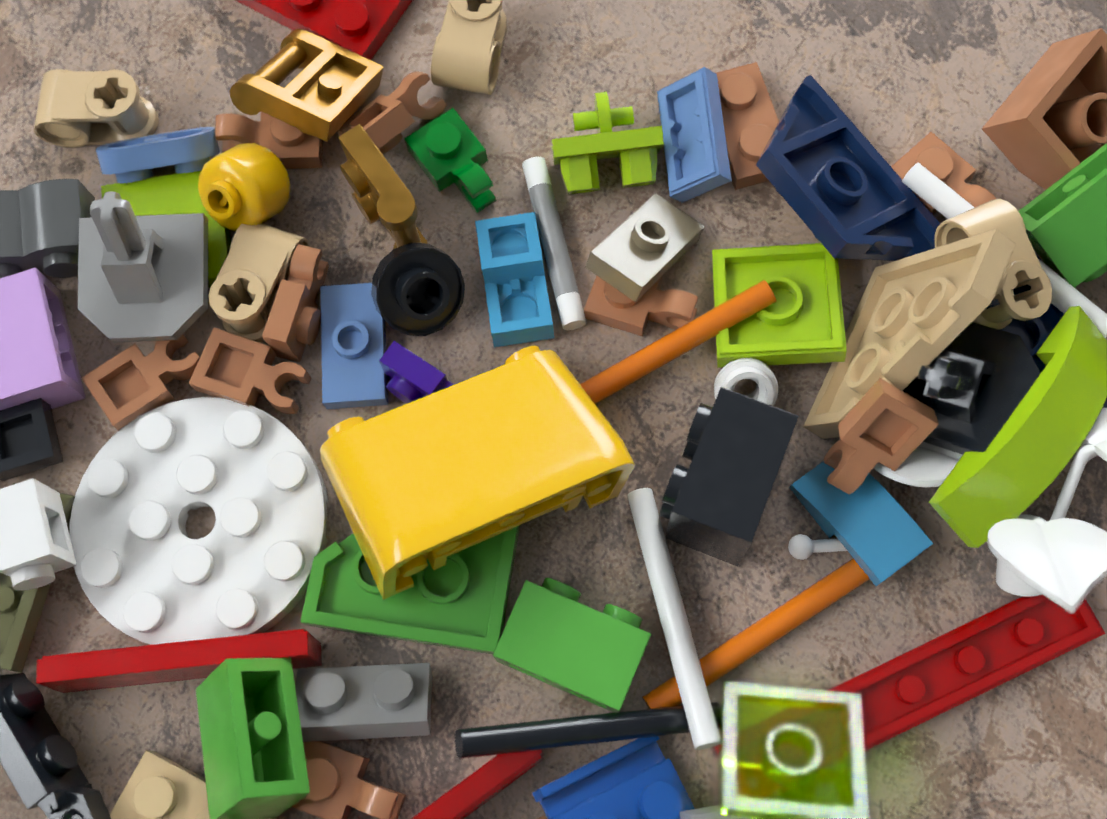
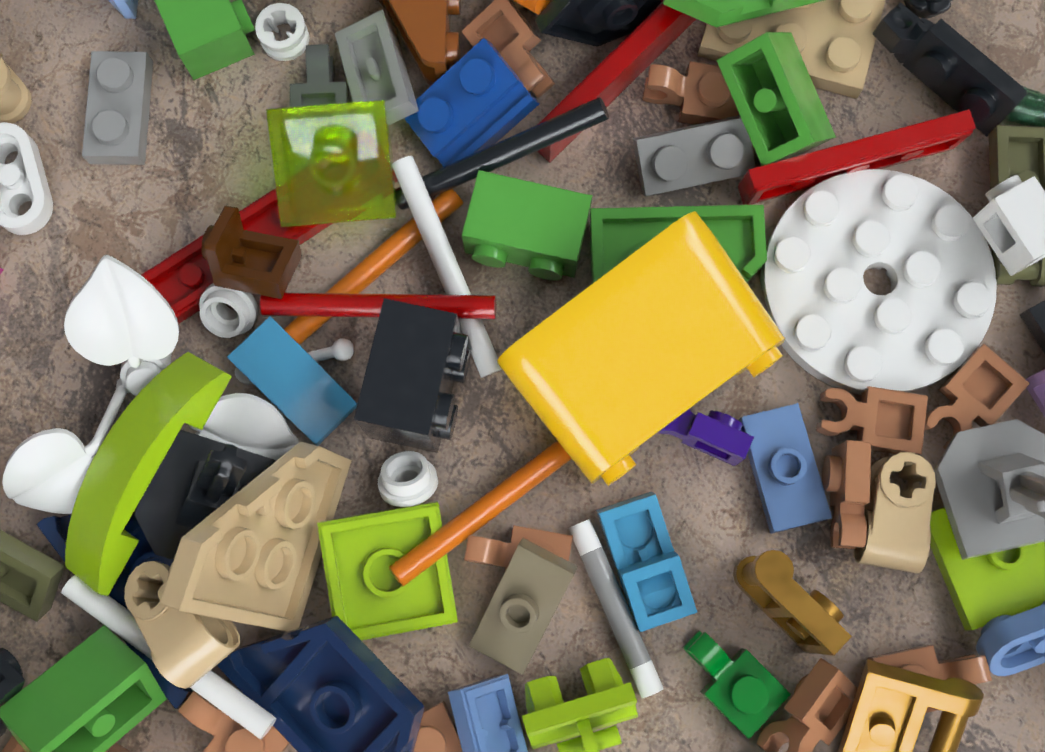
camera: 165 degrees right, 5 degrees up
(246, 183) = (937, 603): yellow head -> none
(418, 289) = (736, 524): black plate -> none
(758, 577) = (370, 304): none -> red bar
(878, 429) = (280, 435): nougat plate -> none
(900, 651) = (247, 258): none -> reddish brown bracket
(929, 608) = (223, 320): none -> white plate

